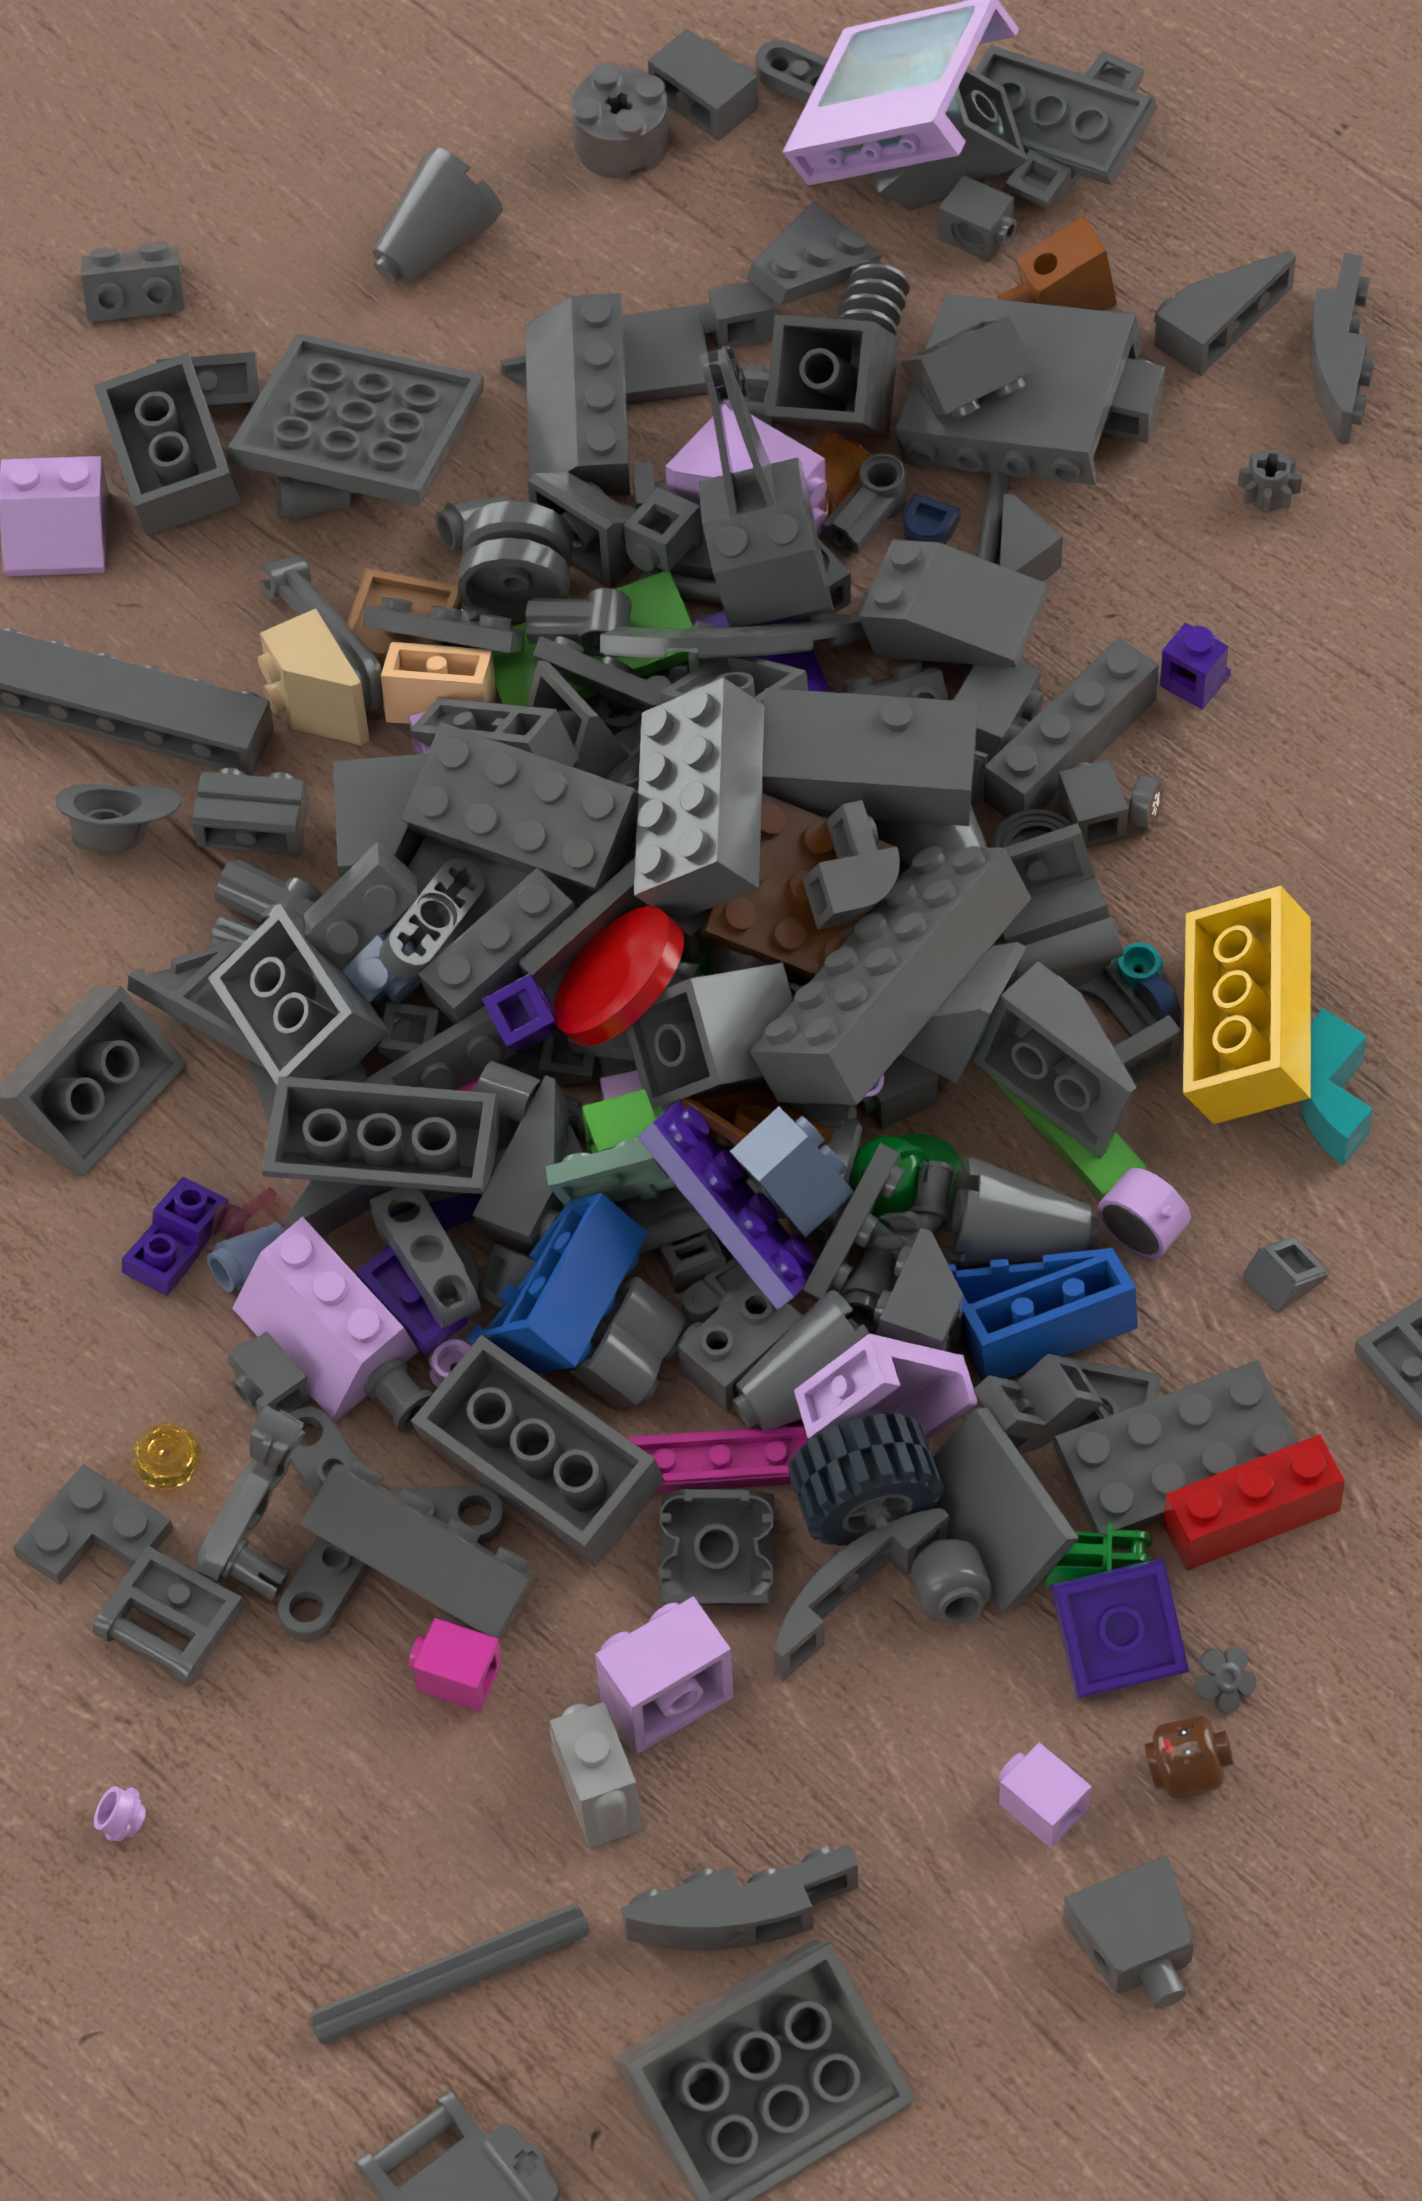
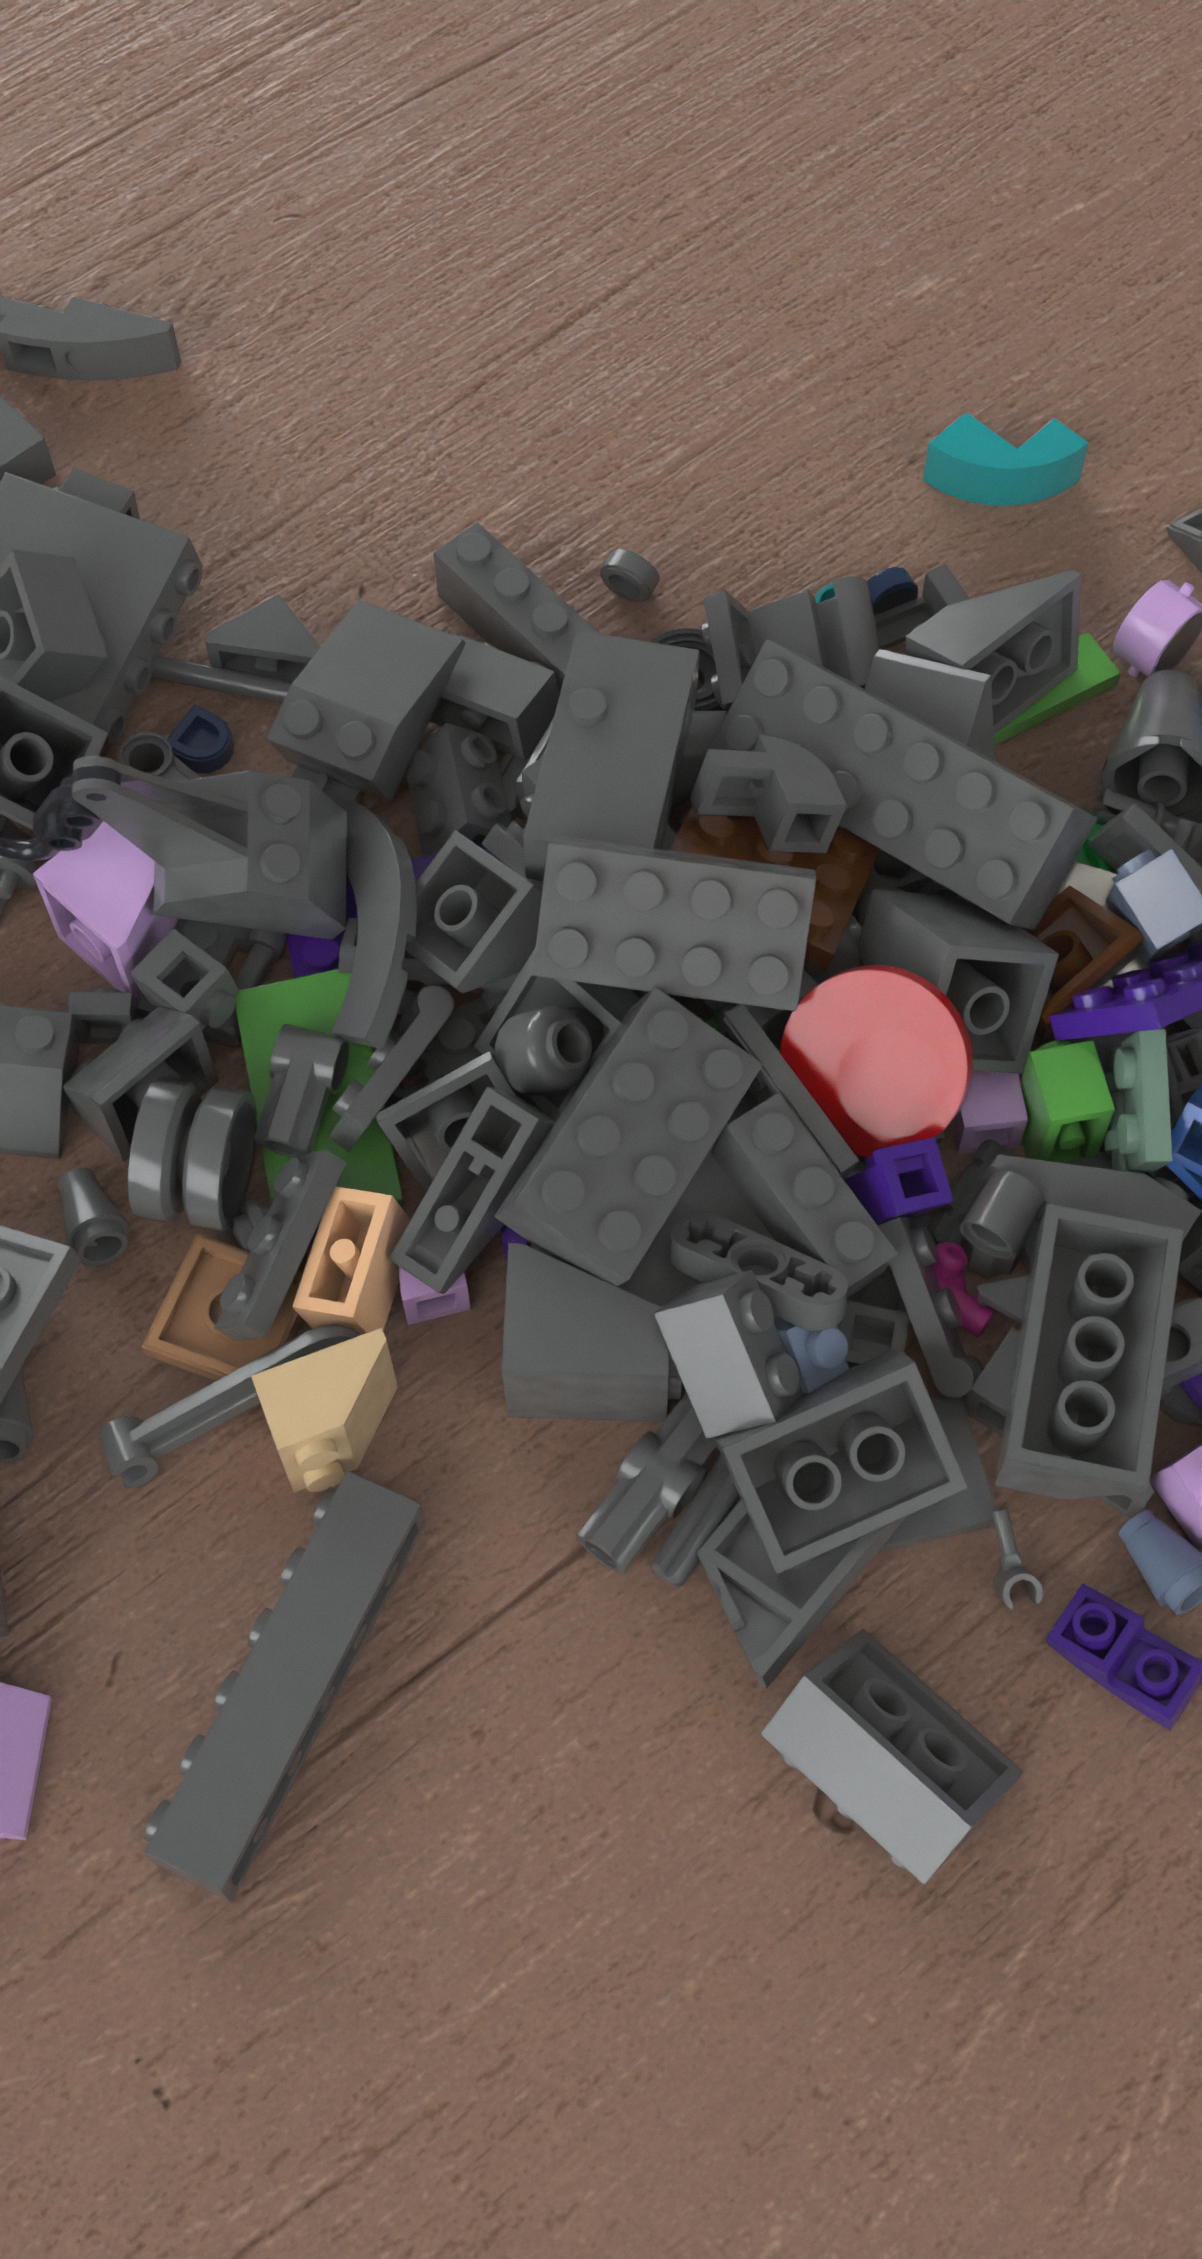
camera: 85 degrees left, 5 degrees up
(114, 816) = (482, 1682): dark grey piece -> none
(233, 1157) = (1012, 1567): none -> dark grey hand
(234, 1218) = (1108, 1573): clear pink hand -> none
(251, 812) = (499, 1516): dark grey brick -> none
(625, 748) = (543, 1050): none -> dark grey head
(1093, 800) = (627, 609): dark grey brick -> none
(1201, 654) = (460, 493): dark purple brick -> none
(1247, 1005) = (923, 500): yellow brick -> none
(1270, 480) = (229, 417): dark grey gear -> none

